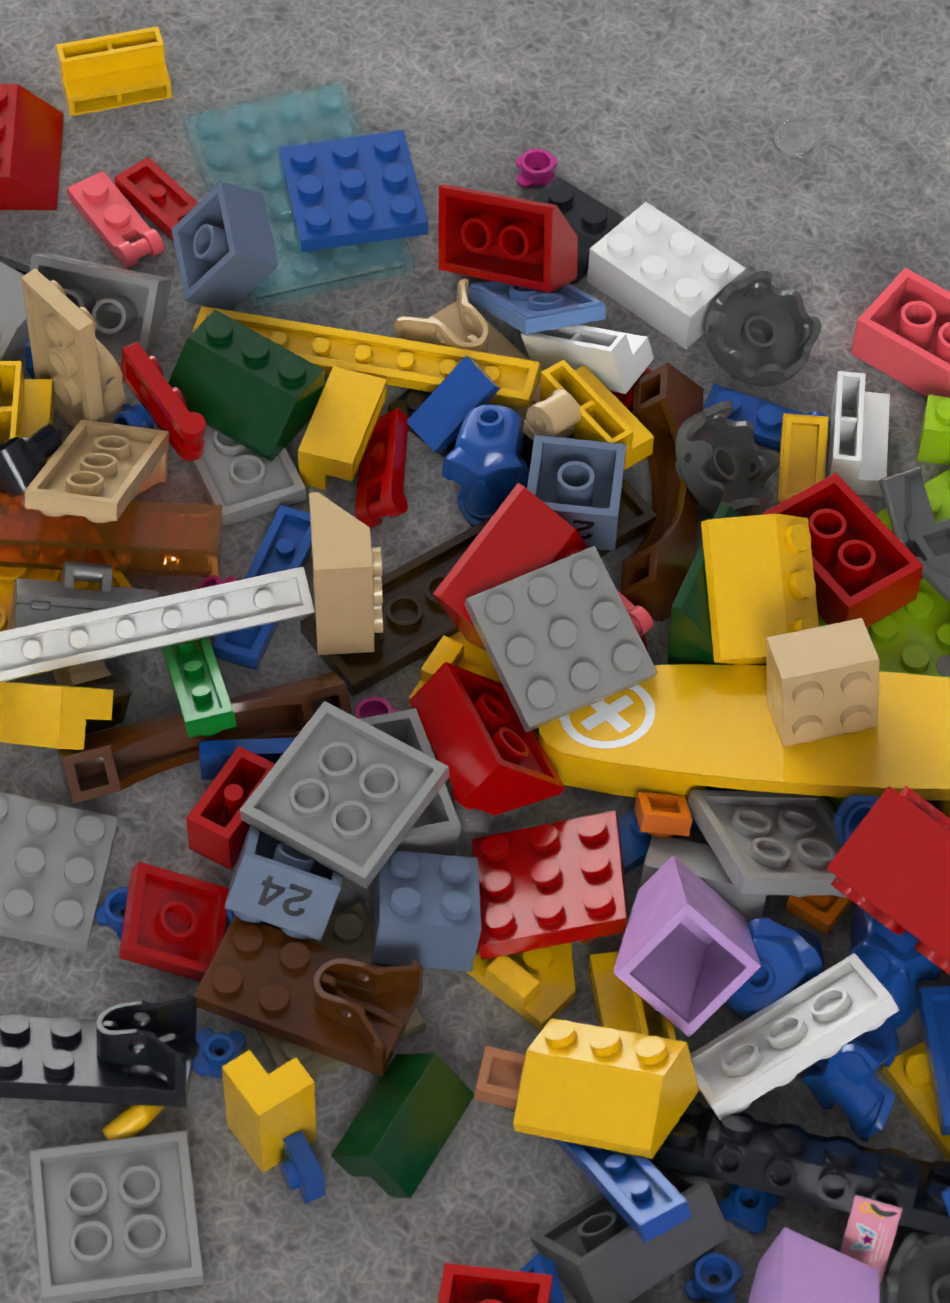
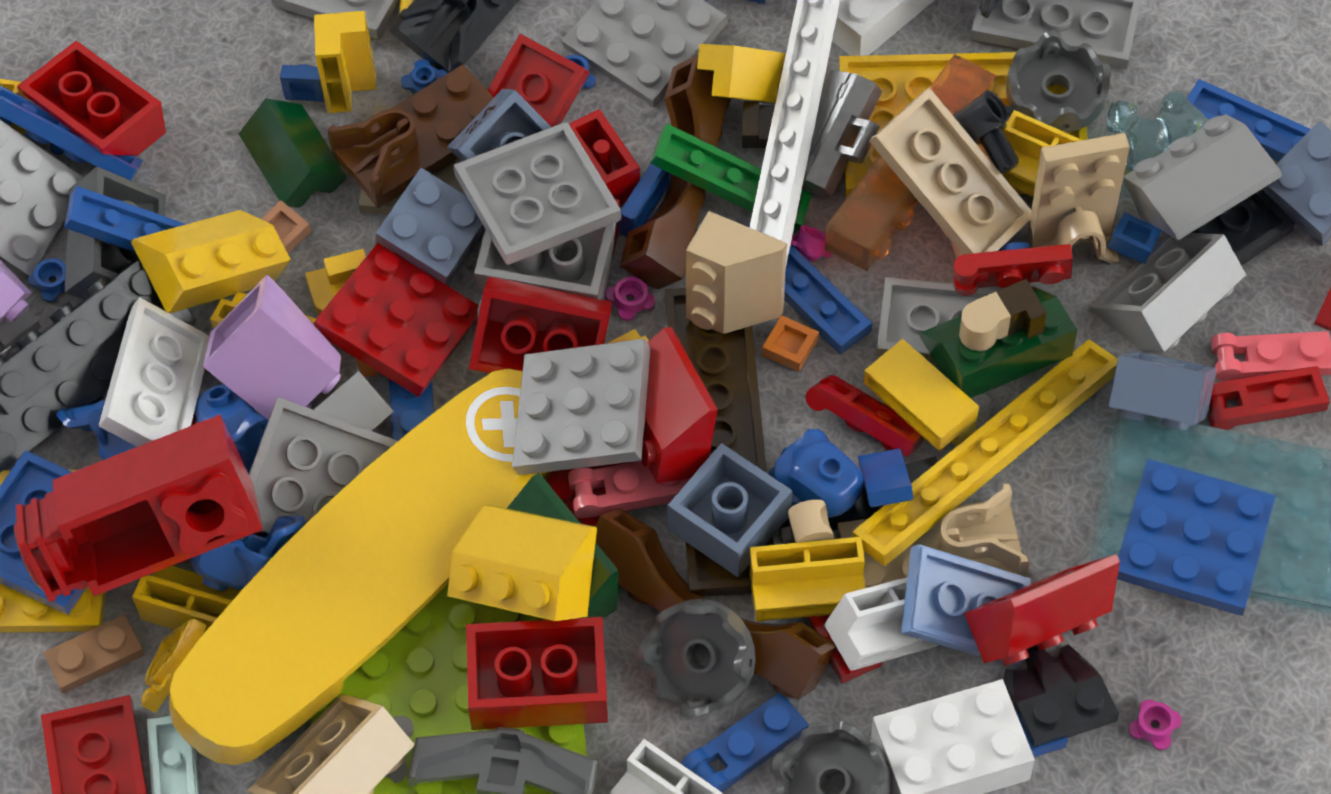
camera: 125 degrees right, 5 degrees up
(253, 345) = (1002, 315): none -> leg
(662, 814) = (397, 415): orange plate -> none
(801, 453) = (678, 737): yellow tile -> none
(822, 682) = (390, 532): tan brick -> none

